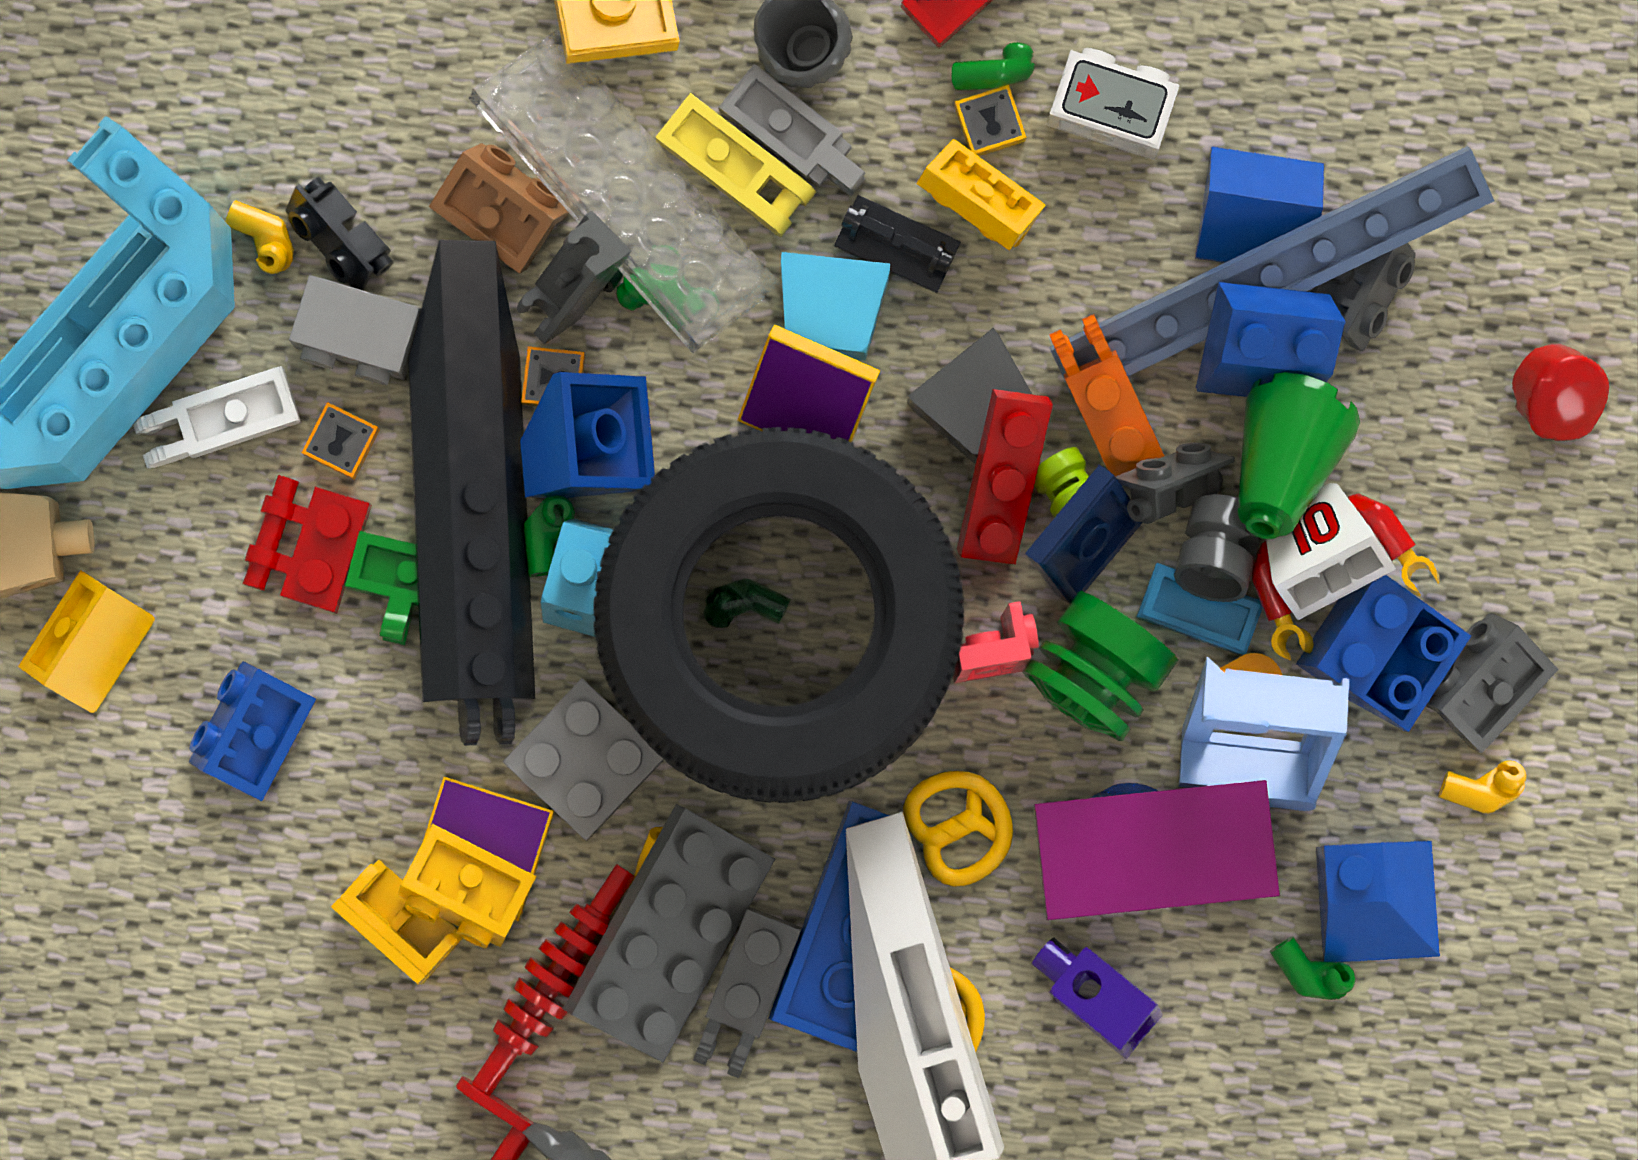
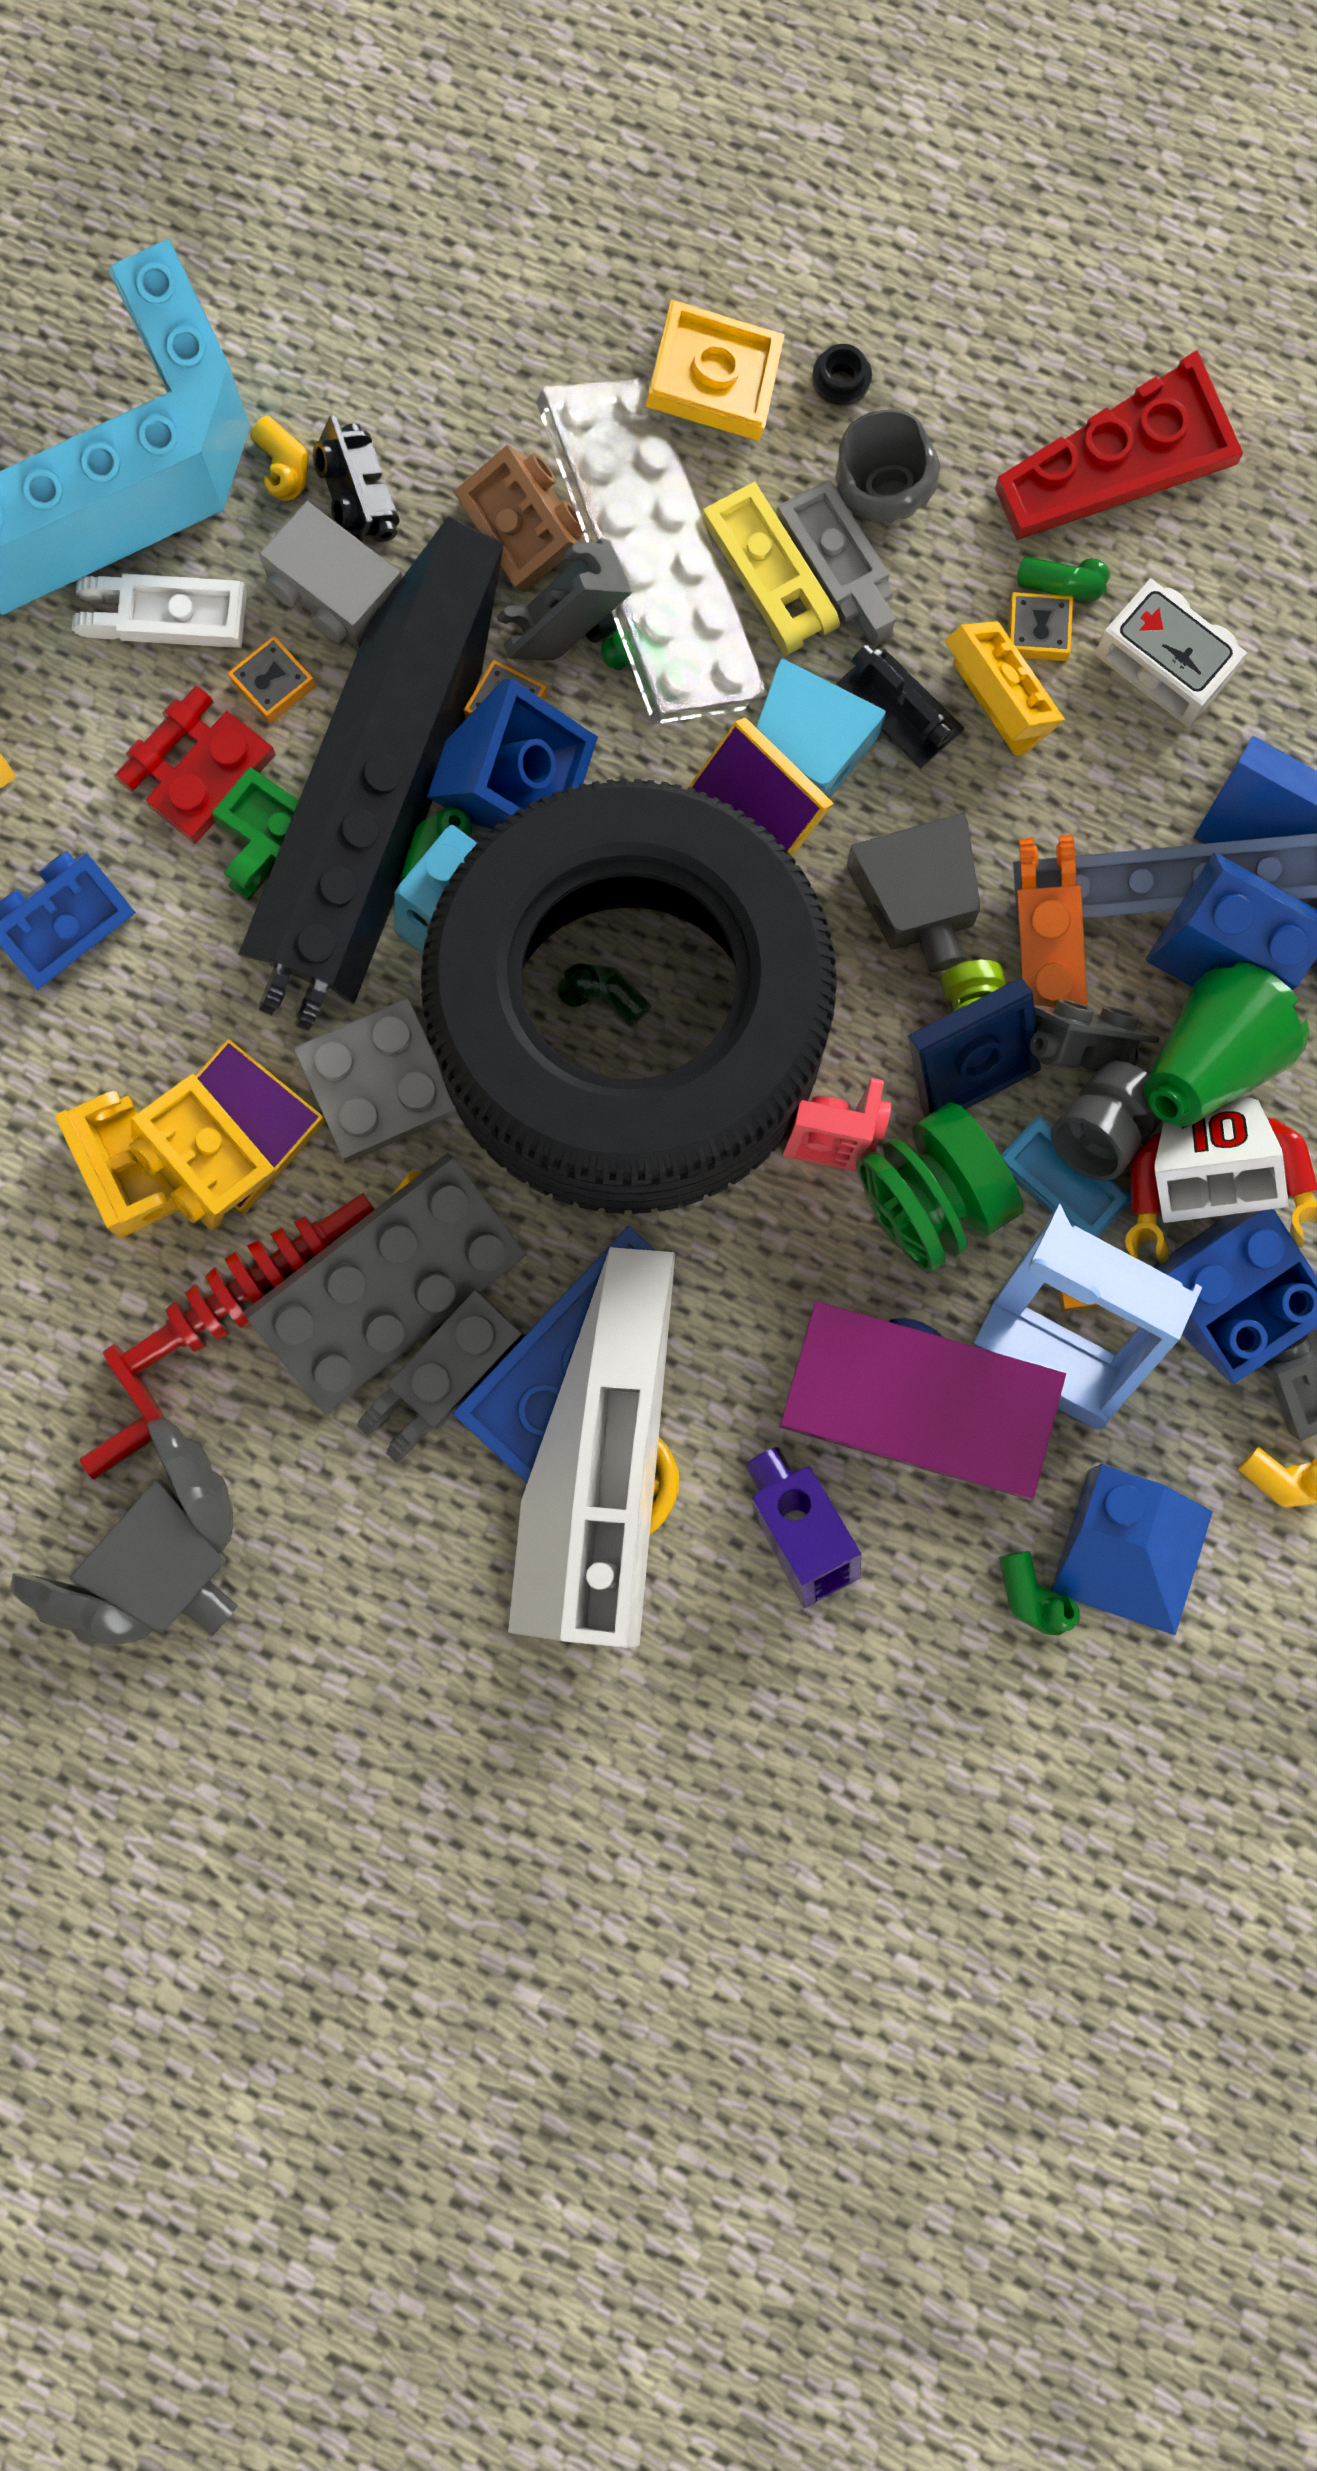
camera: 20 degrees right, 5 degrees down
(960, 825) = (730, 1298): yellow piece -> none
(1004, 476) = (917, 962): red plate -> none

